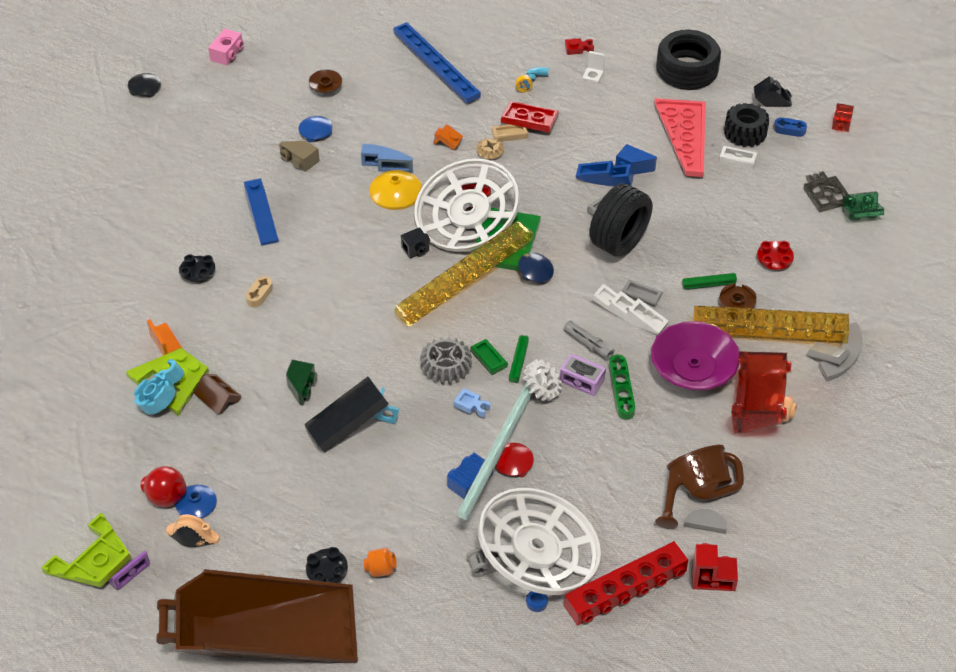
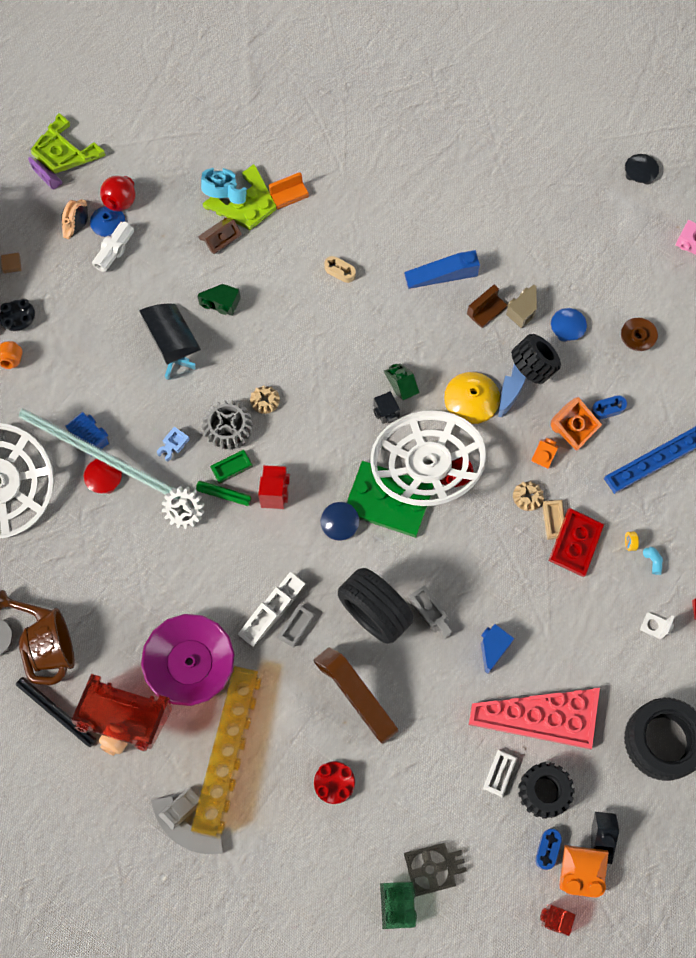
camera: 95 degrees right, 20 degrees up
(197, 267) = (374, 217): black dish -> none
(234, 485) = (113, 246): none -> white piece
(298, 182) = (486, 307): none -> reddish brown panel
(360, 136) = (536, 358): none -> black tyre
(385, 233) = (402, 381): none -> dark green slope
(396, 103) = (608, 403): none -> blue beam
(412, 343) = (263, 407): none -> tan gear
(417, 118) = (575, 423): none -> orange slope
(463, 273) = (336, 450): clear yellow beam -> none
(510, 316) = (274, 487): none -> red brick
(582, 374) = (190, 549): lavender brick -> none
(605, 173) = (476, 613): blue slope -> none
(605, 350) = (229, 568): light grey pin -> none
(624, 386) = (173, 590): green beam -> none
(691, 234) = (340, 670): none -> reddish brown beam
(710, 280) = (305, 701): green axle -> none
(732, 292) = (259, 724): reddish brown plate -> none
(765, 463) = (55, 711): none -> black axle
(803, 102) = (583, 871): none -> orange slope

